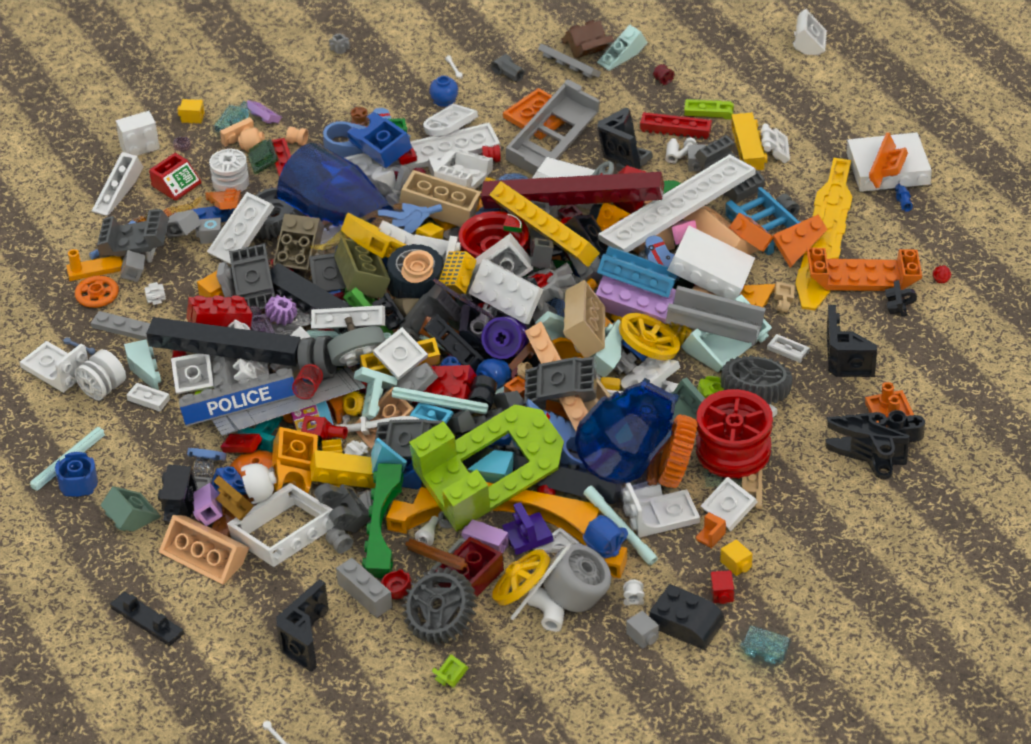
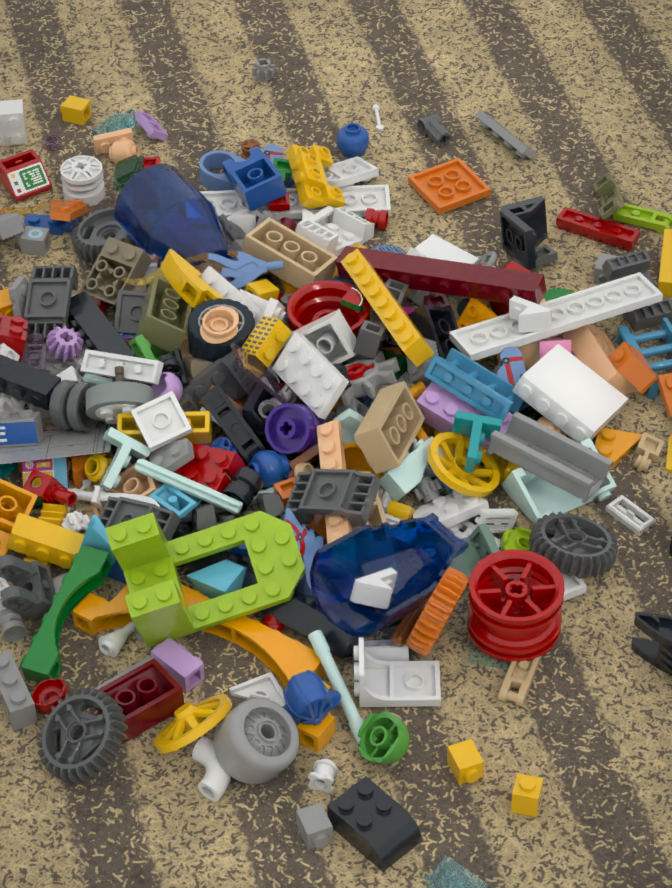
camera: 15 degrees right, 0 degrees up
(241, 227) = (65, 240): white plate -> none
(297, 136) = (175, 158): light nougat wheel -> none
(315, 386) = (53, 434): red piece -> none
(392, 324) = (168, 383): none -> lavender hair
(421, 124) = (310, 176): none -> yellow bracket
(436, 554) = (105, 670): dark orange axle -> none
(450, 671) = (64, 821): lime bracket -> none
(527, 531) = (229, 667): dark purple bracket -> none
(540, 581) = (208, 735): white piece -> none
(566, 104) = (479, 180): light grey piece -> none
(587, 39) = (533, 114): reddish brown bracket -> none
(623, 445) = (375, 589): none -> white slope
(624, 48) = (573, 132): light aqua slope -> none
(654, 306) = (478, 428): none -> teal bracket
(659, 206) = (530, 316): none -> white slope
(663, 74) = (605, 165): dark red wheel -> none
(670, 554) = (383, 738): none -> bright green cylinder
(673, 152) = (583, 256): white plant -> none
(675, 96) = (609, 195): none -> olive slope
(689, 371) = (497, 517): none -> white tile
(713, 530) = (451, 721): orange panel -> none
(722, 587) = (433, 795): red brick -> none
(729, 503) = (482, 691): white plate -> none
(792, 570) = (526, 795): none -> yellow brick

